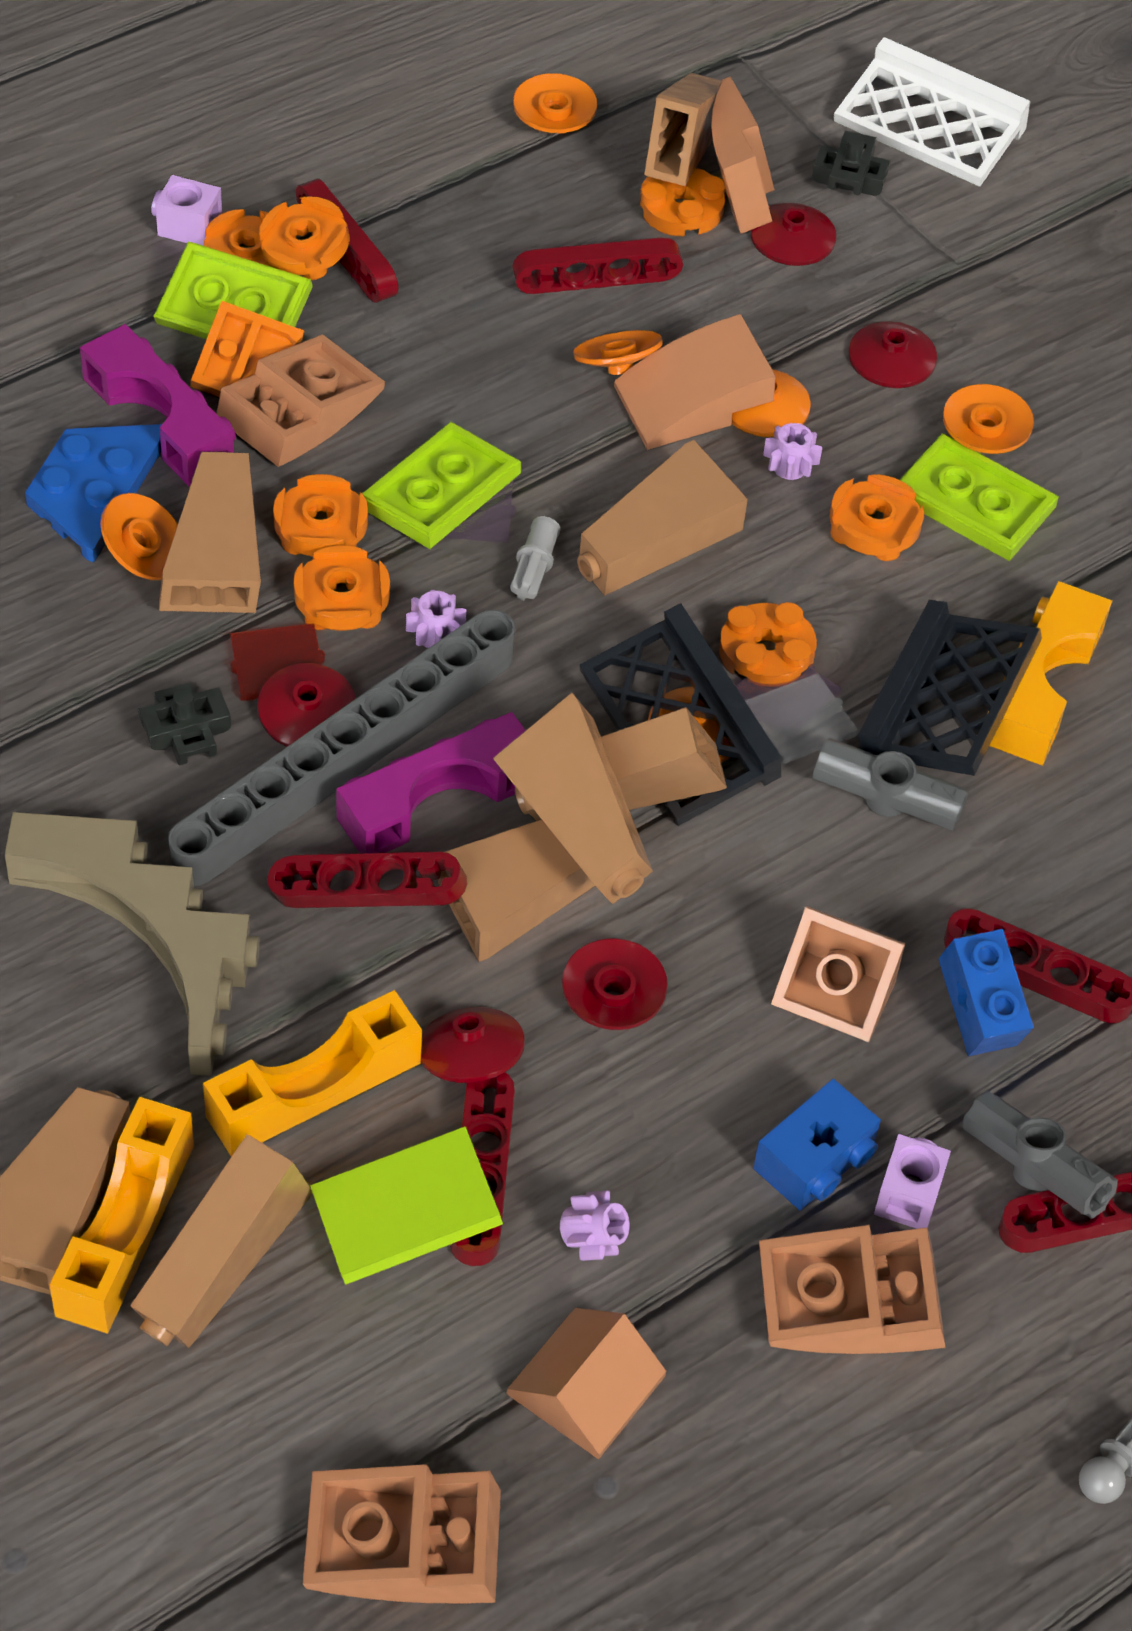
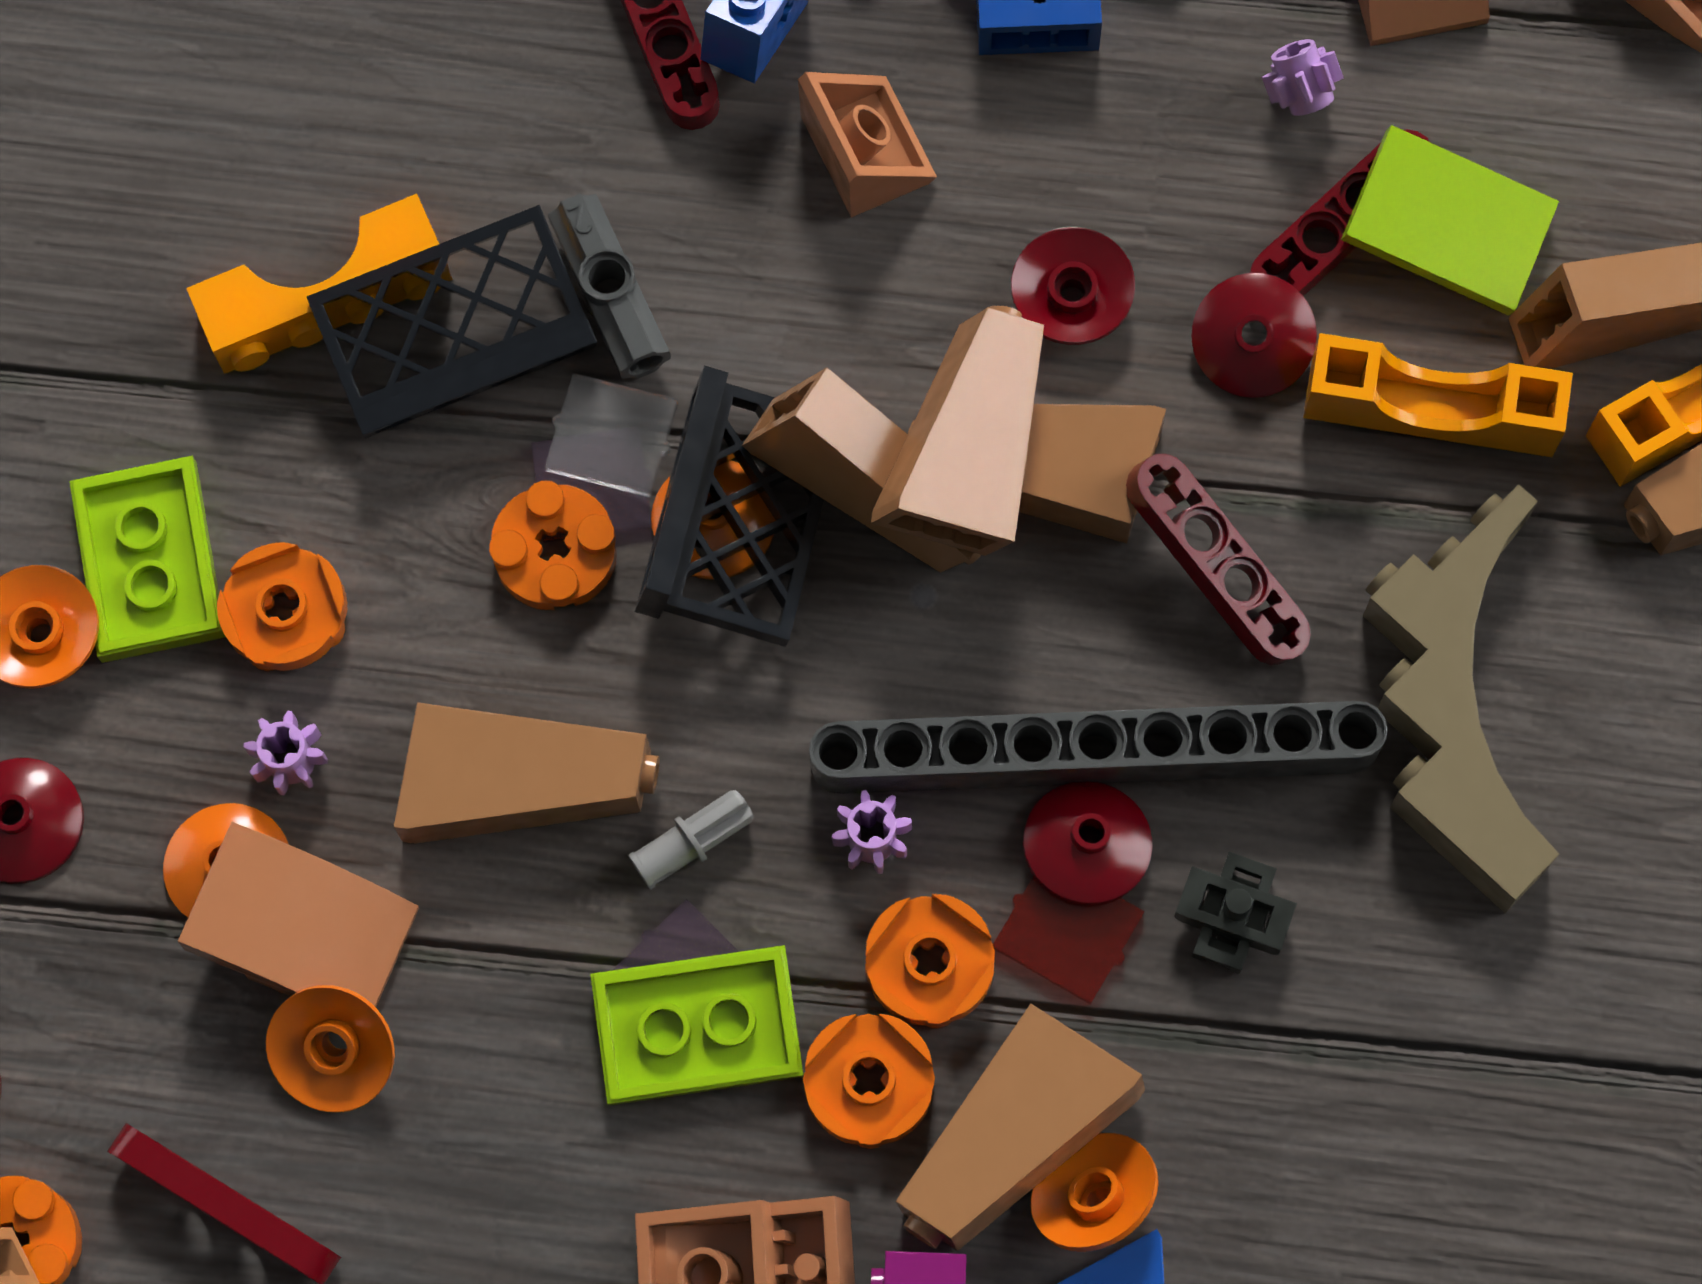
camera: 130 degrees left, 20 degrees up
(380, 805) = (1120, 647): magenta arch -> none

